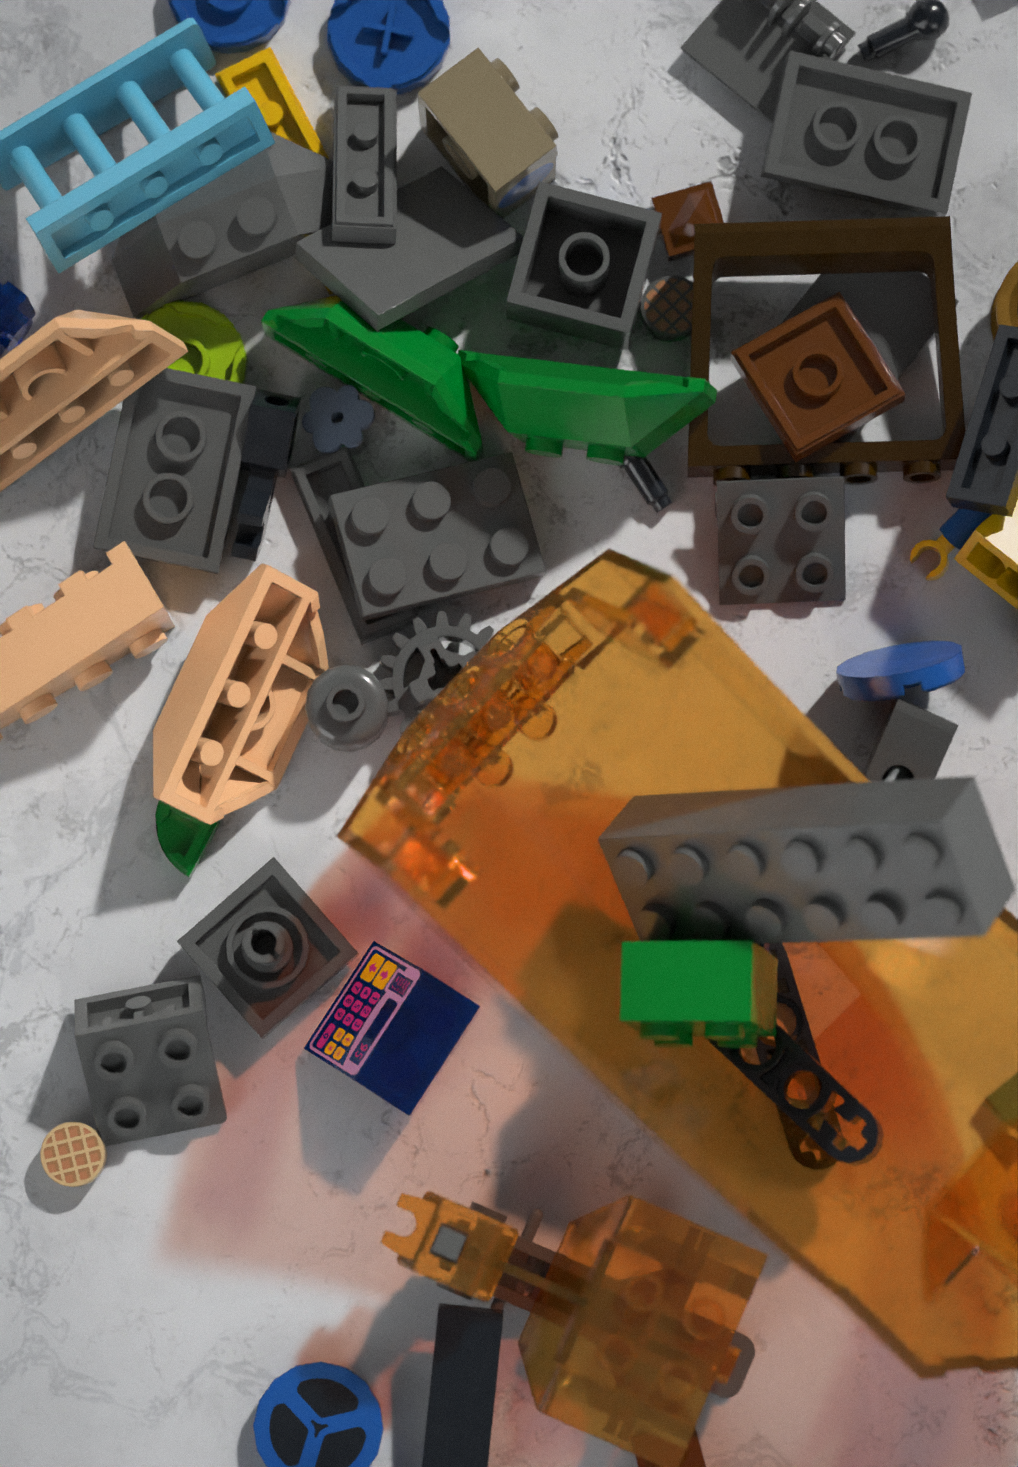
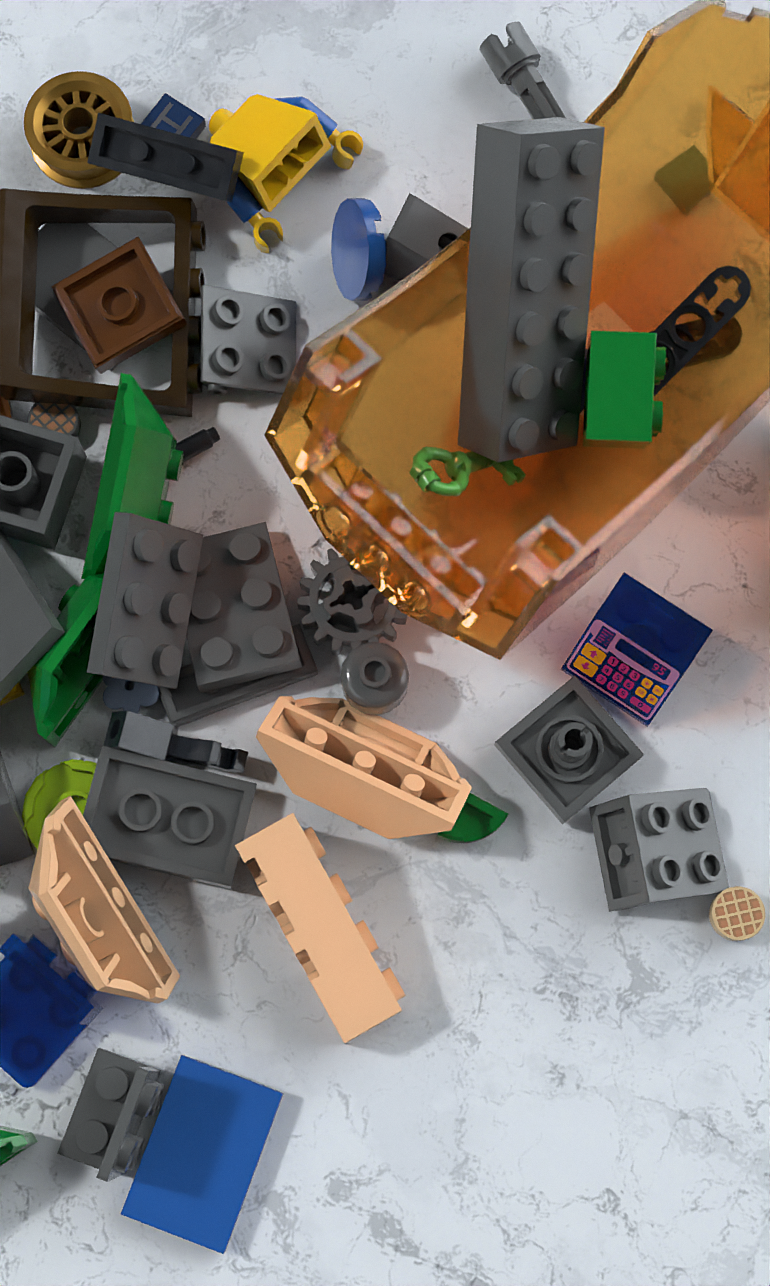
camera: 90 degrees left, 5 degrees down
(422, 425) = (145, 601): none -> dark grey plate
(598, 794) = (458, 468): none -> bright green piece

